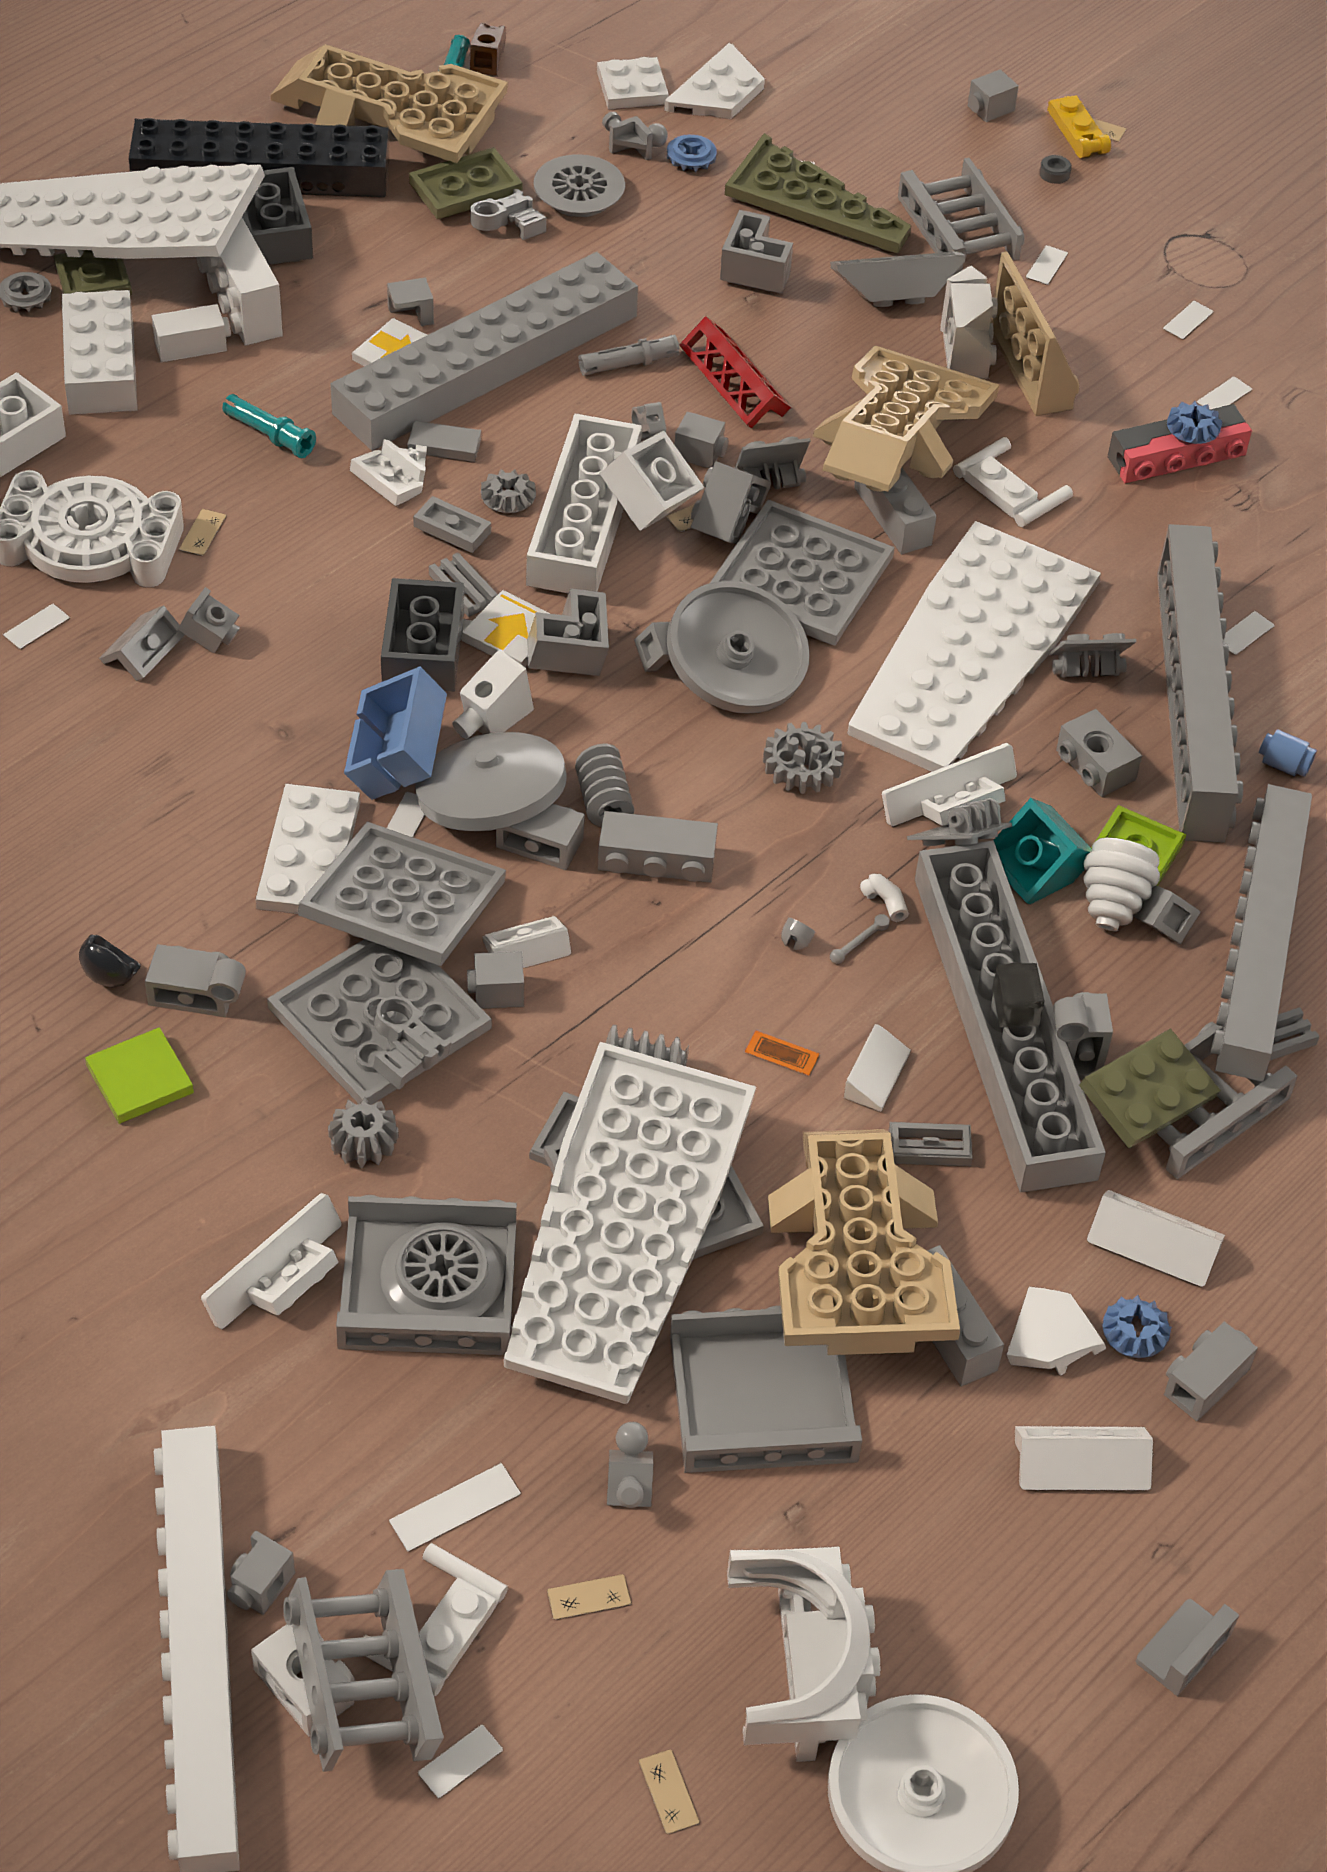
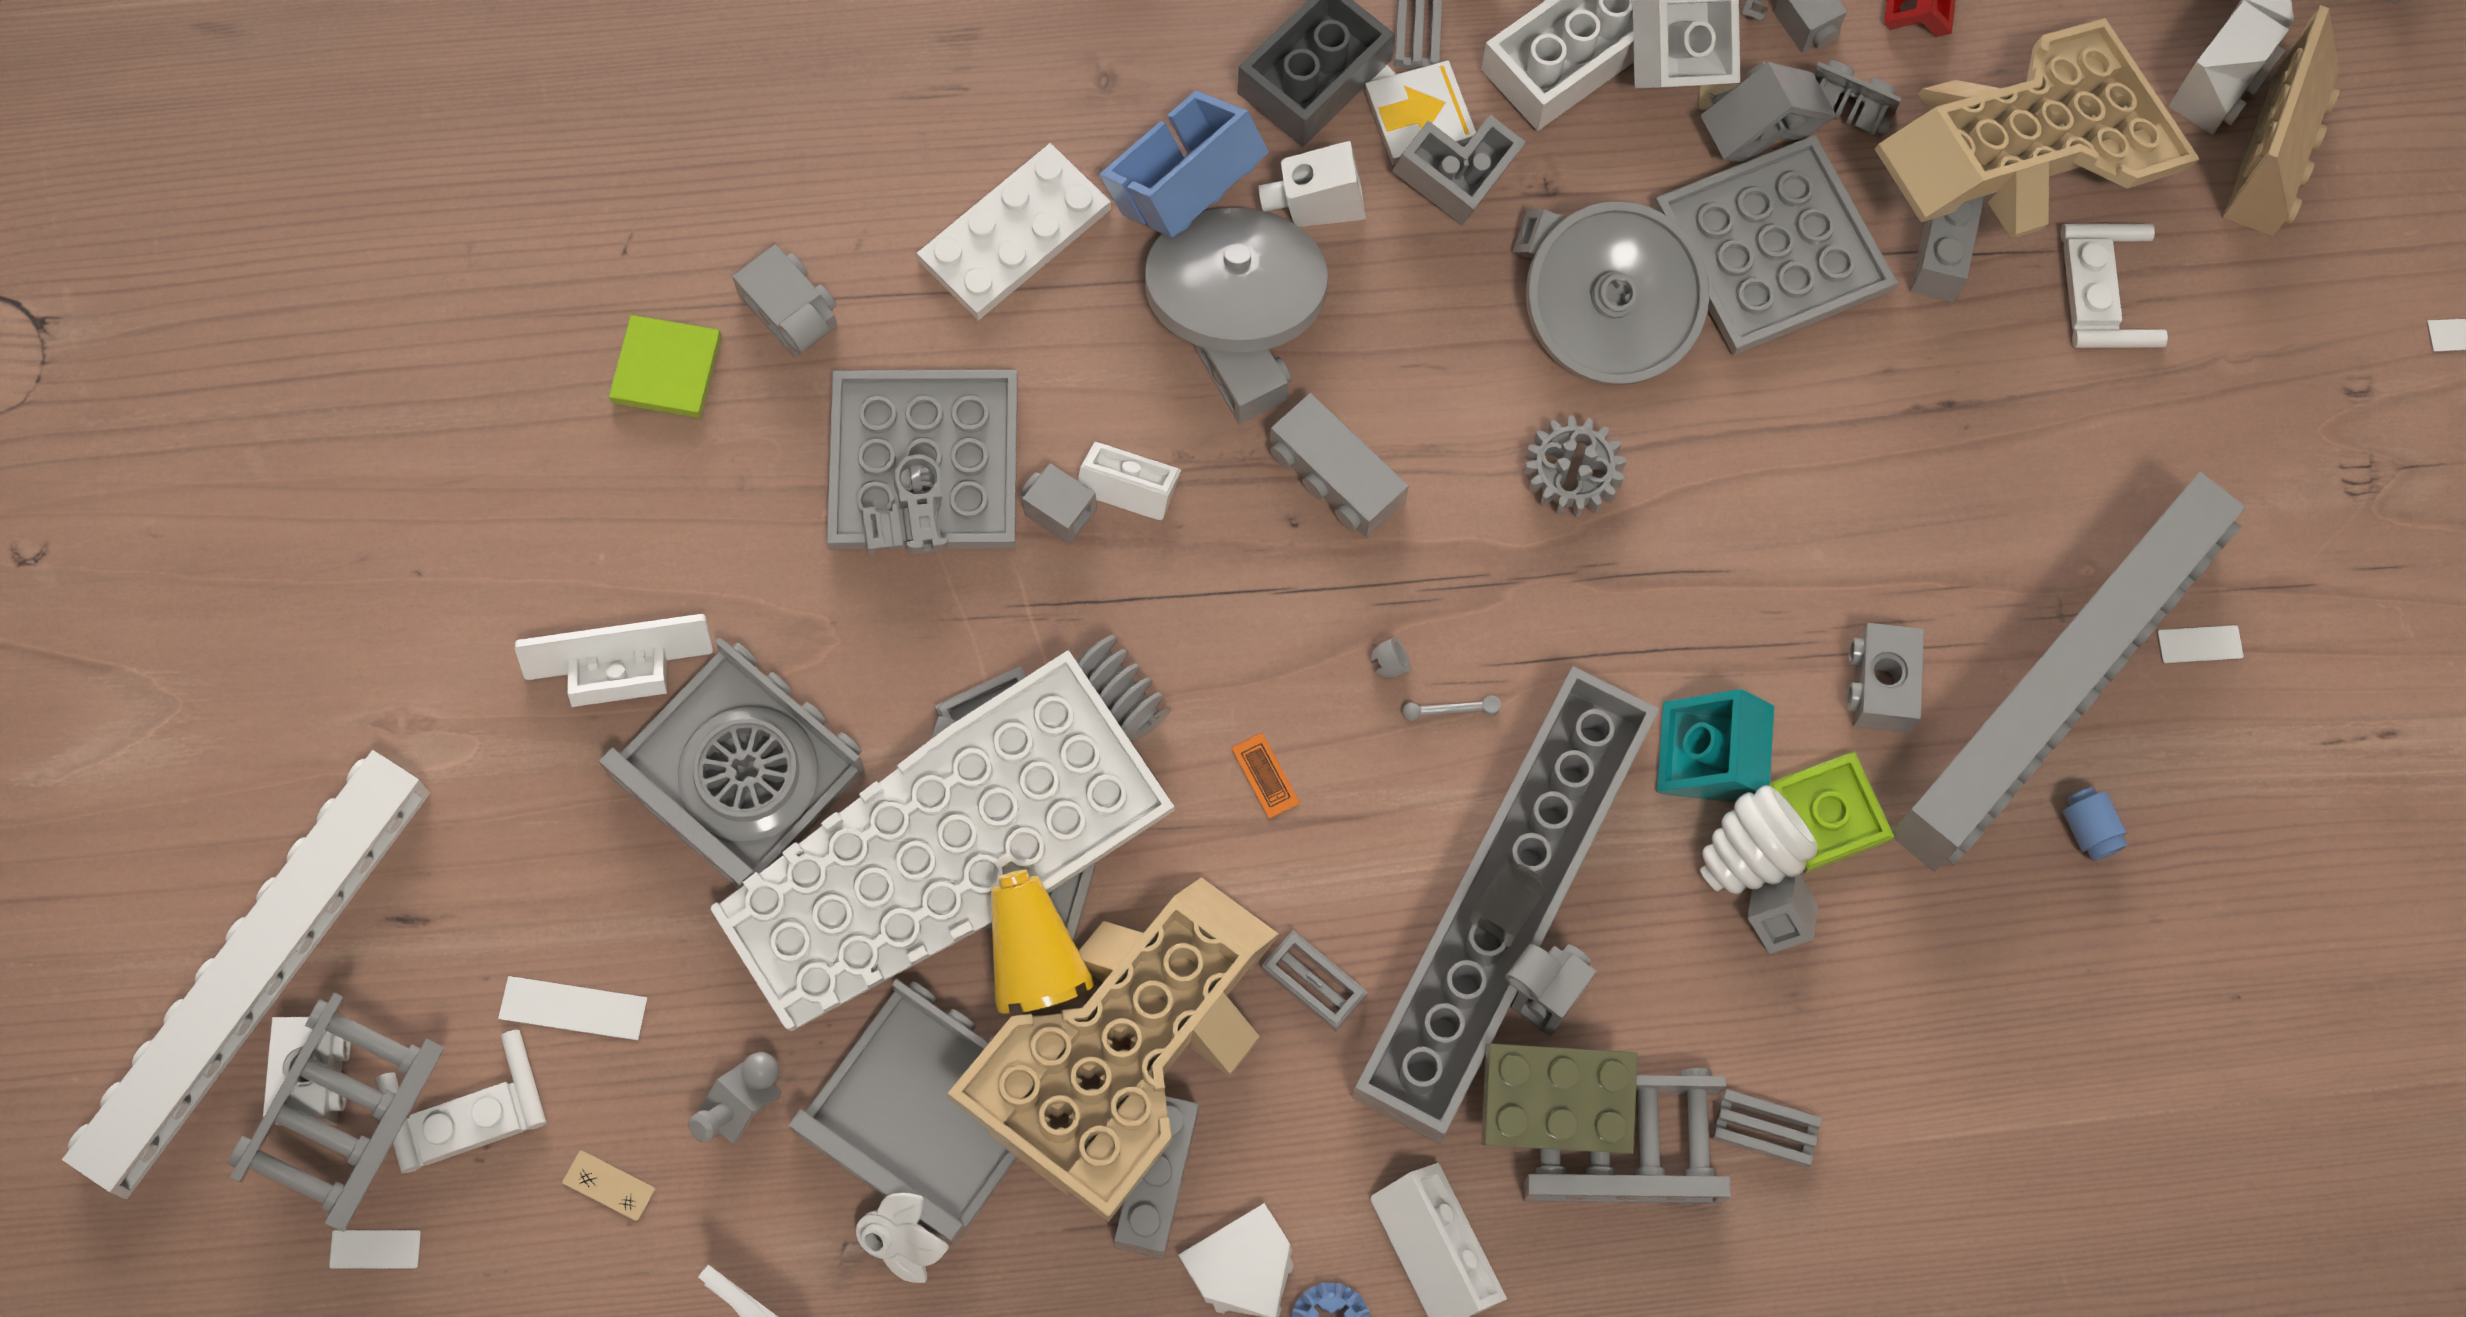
camera: 40 degrees right, 20 degrees up
(106, 963) = (727, 227): black hair -> none
(260, 1574) = (350, 947): light grey brick -> none
(363, 1132) = (790, 562): light grey gear -> none
(402, 893) = (1045, 346): light grey plate -> none
(407, 815) = (1127, 263): white sticker -> none
(603, 782) = (1343, 359): light grey piece -> none
(746, 1225) = (1032, 947): none -> yellow cone
(829, 1464) = (897, 1238): none -> white plate
(876, 1069) = (1333, 863): white slope -> none
(889, 892) = (1524, 678): white arm -> none
(951, 787) = (1695, 615): white bracket -> none
(966, 825) = (1649, 670): light grey hinge -> none
(970, 646) = (1881, 453): white wing -> none
(1046, 264) = (2421, 31): white sticker -> none
(1102, 653) = (2012, 565): light grey hinge -> none
(1155, 451) = (2346, 365): coral piece -> none
(1182, 426) = (2383, 373): medium blue gear -> none
(1263, 934) = (1852, 1013): light grey brick -> none

